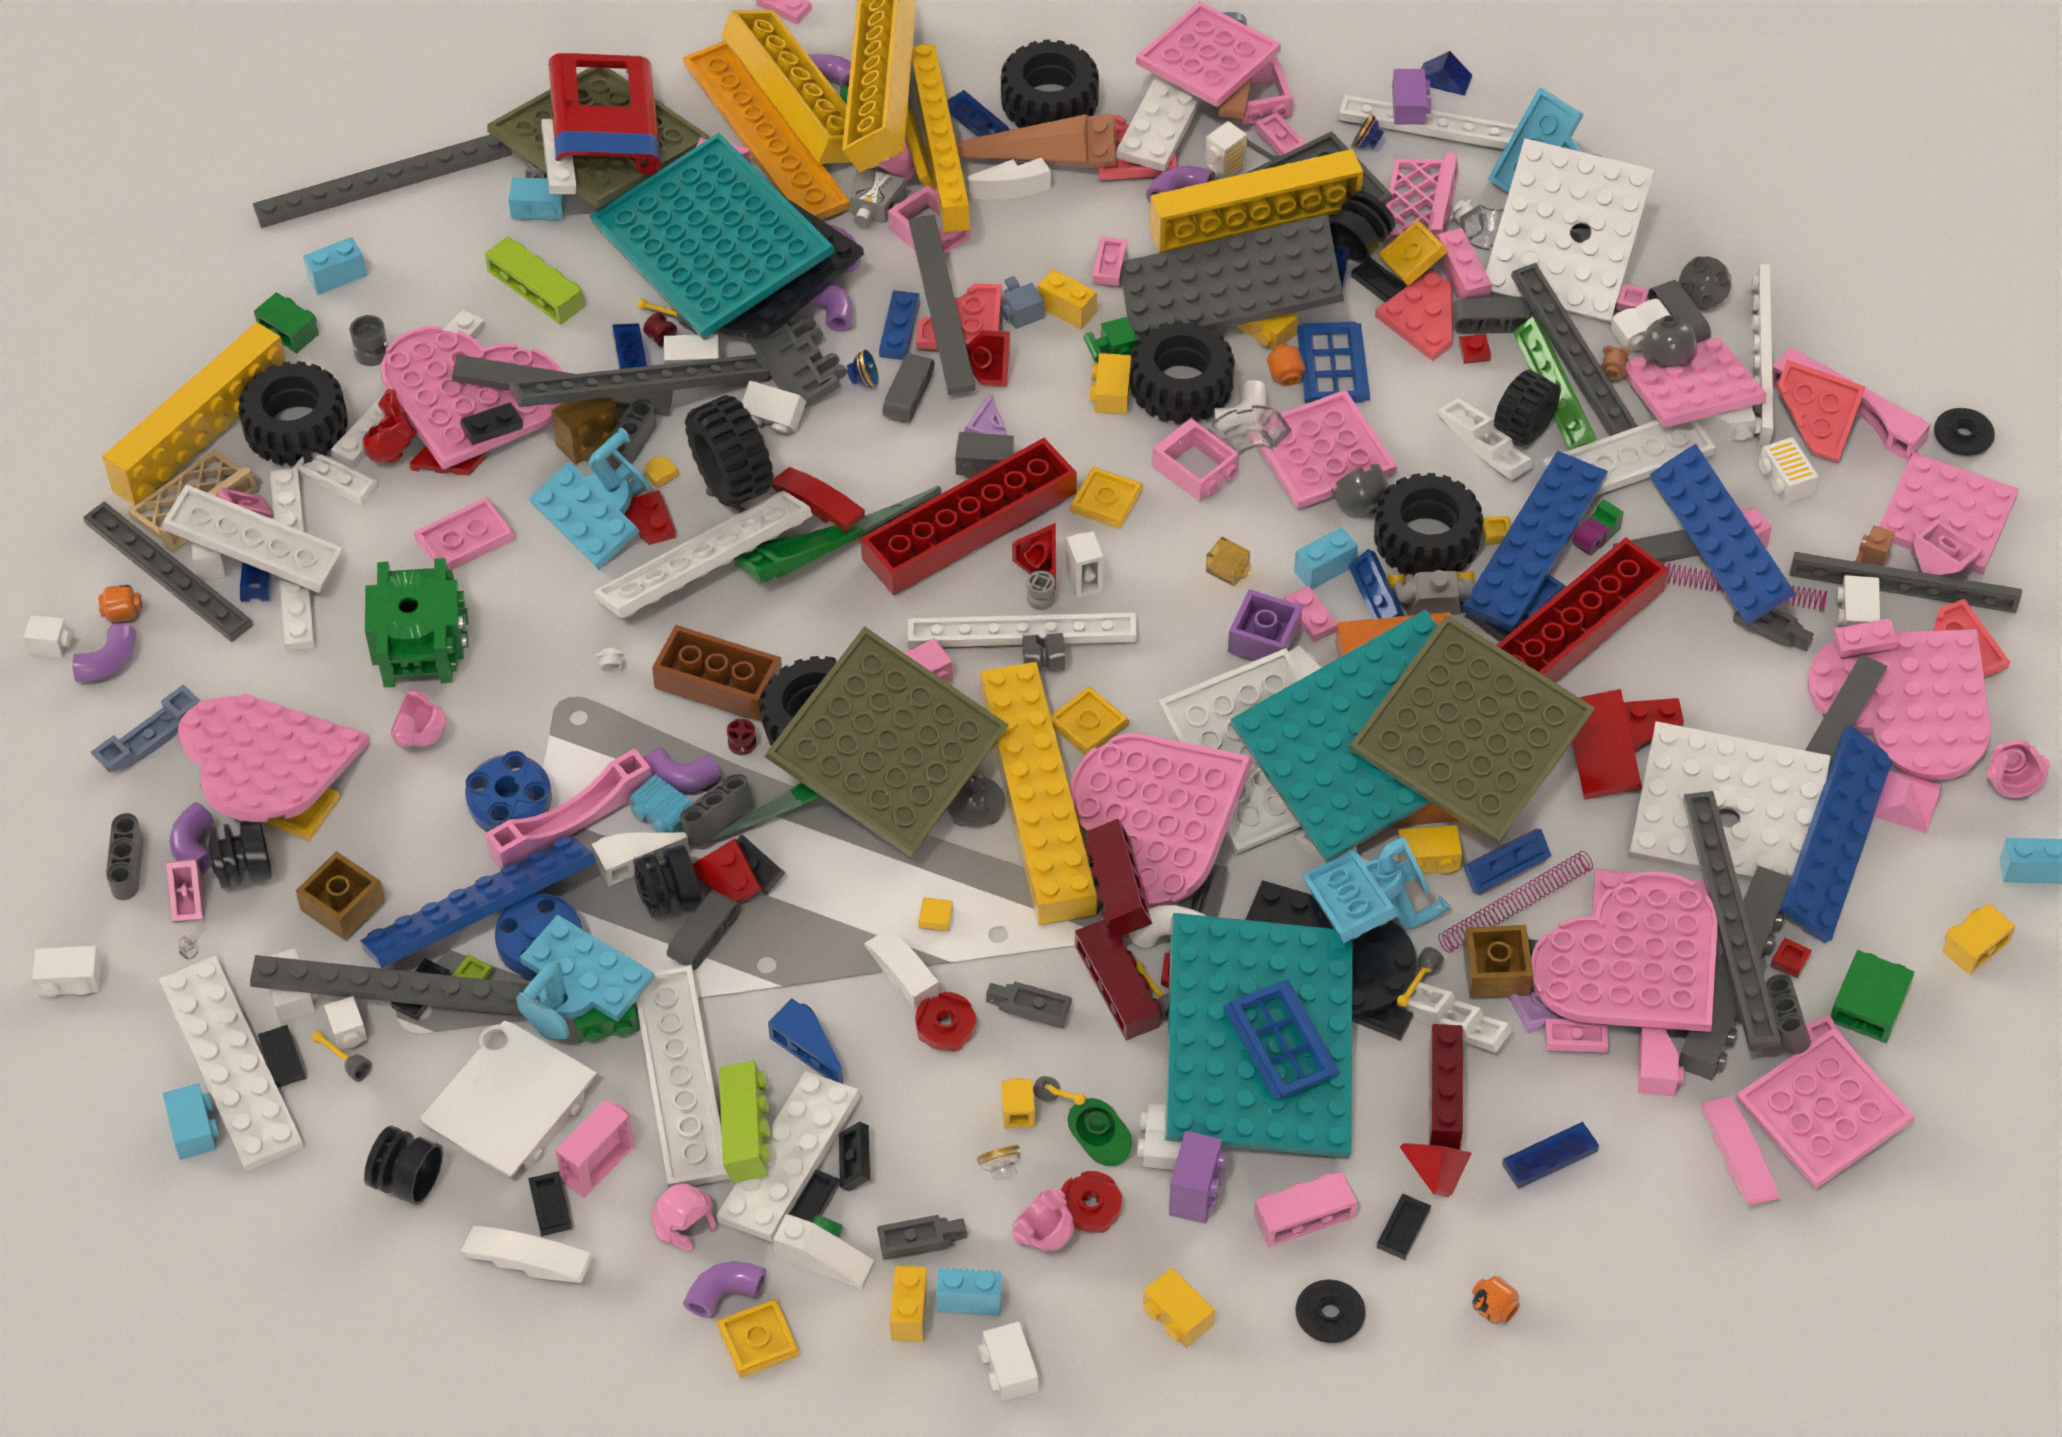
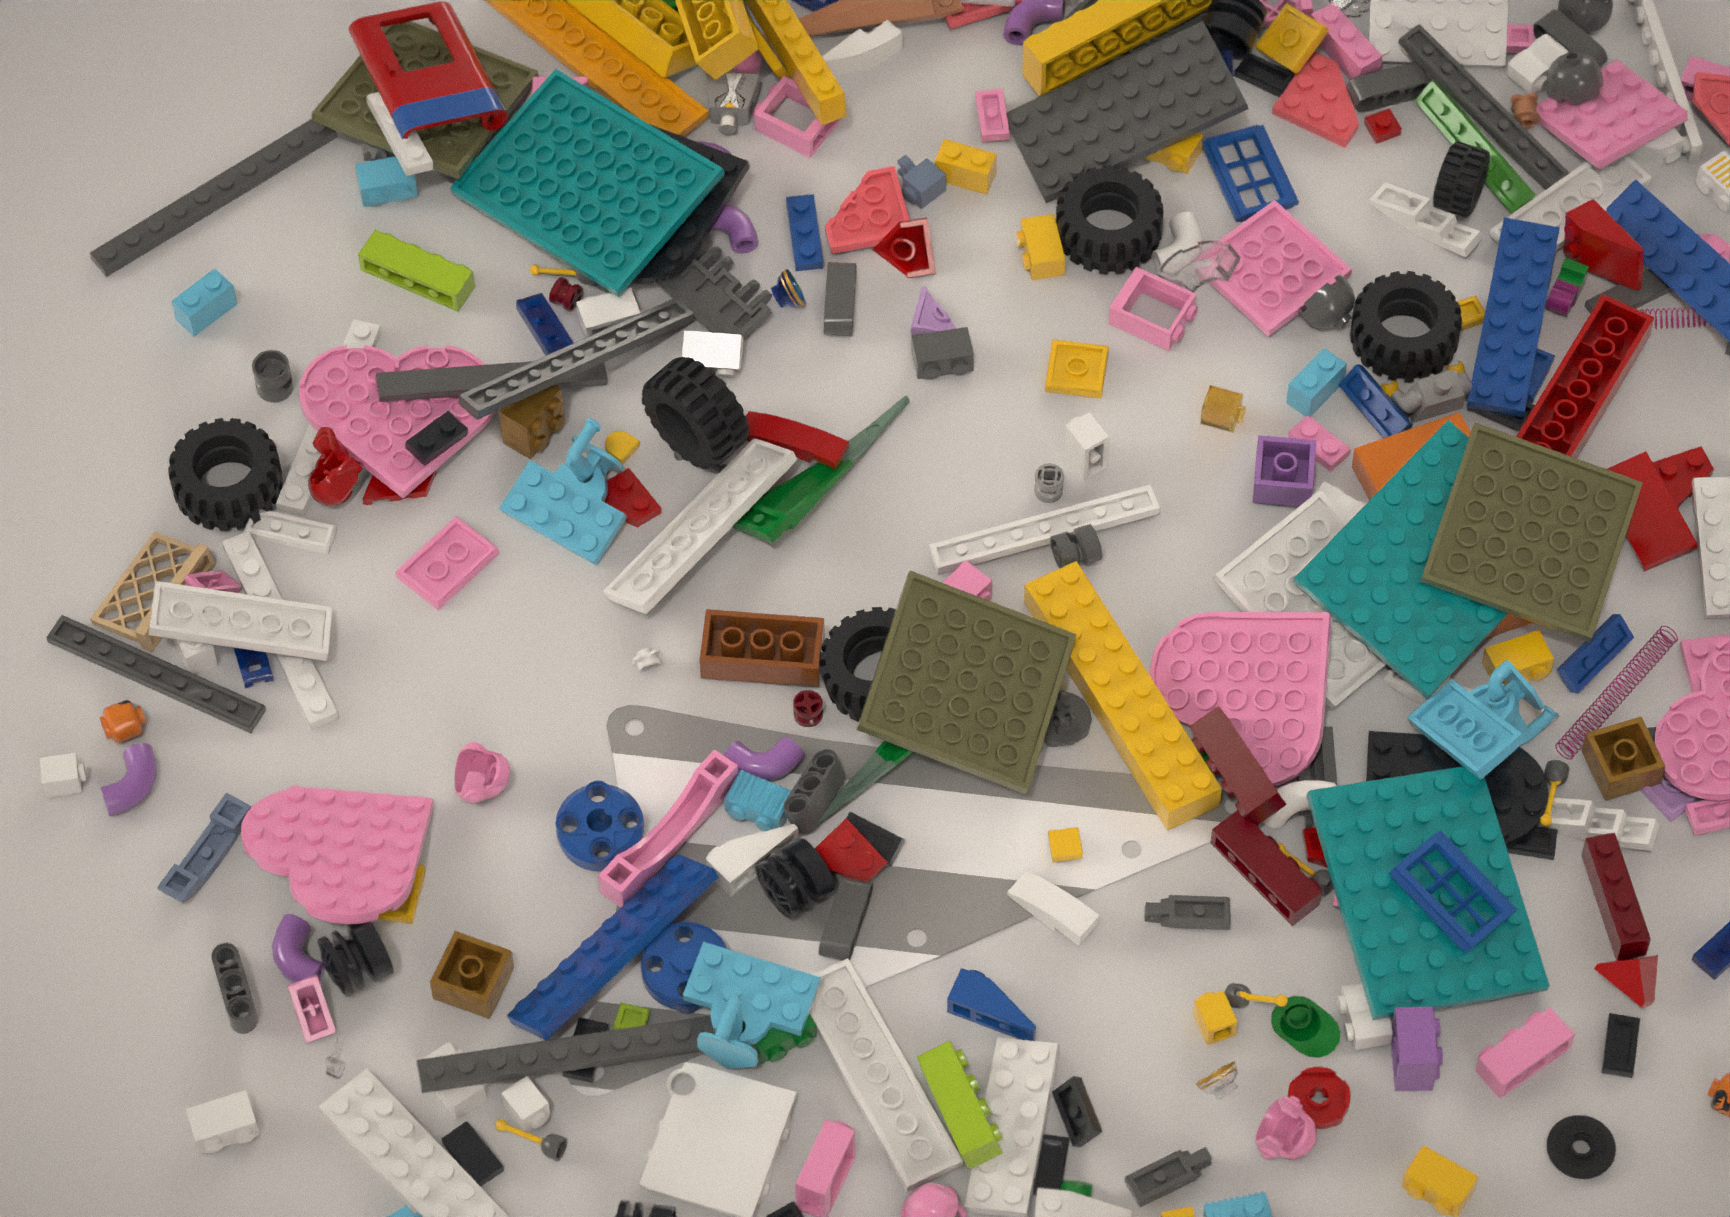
camera: 15 degrees left, 5 degrees up
(190, 416) = (123, 502): yellow brick -> none
(288, 320) = (177, 376): green brick -> none
(416, 622) = (444, 690): green piece -> none
(639, 423) = (576, 405): dark grey beam -> none
(941, 304) = (844, 202): dark grey tile -> none
(945, 1037) = (1114, 968): red plate -> none
(968, 515) = (951, 422): red brick -> none
(1037, 551) = (1034, 444): red slope -> none
(1088, 721) = (1143, 608): yellow tile -> none
(1116, 338) = (1028, 199): green brick -> none
(1285, 365) = (1206, 187): orange head -> none
(1641, 494) = (1603, 245): none -> red slope

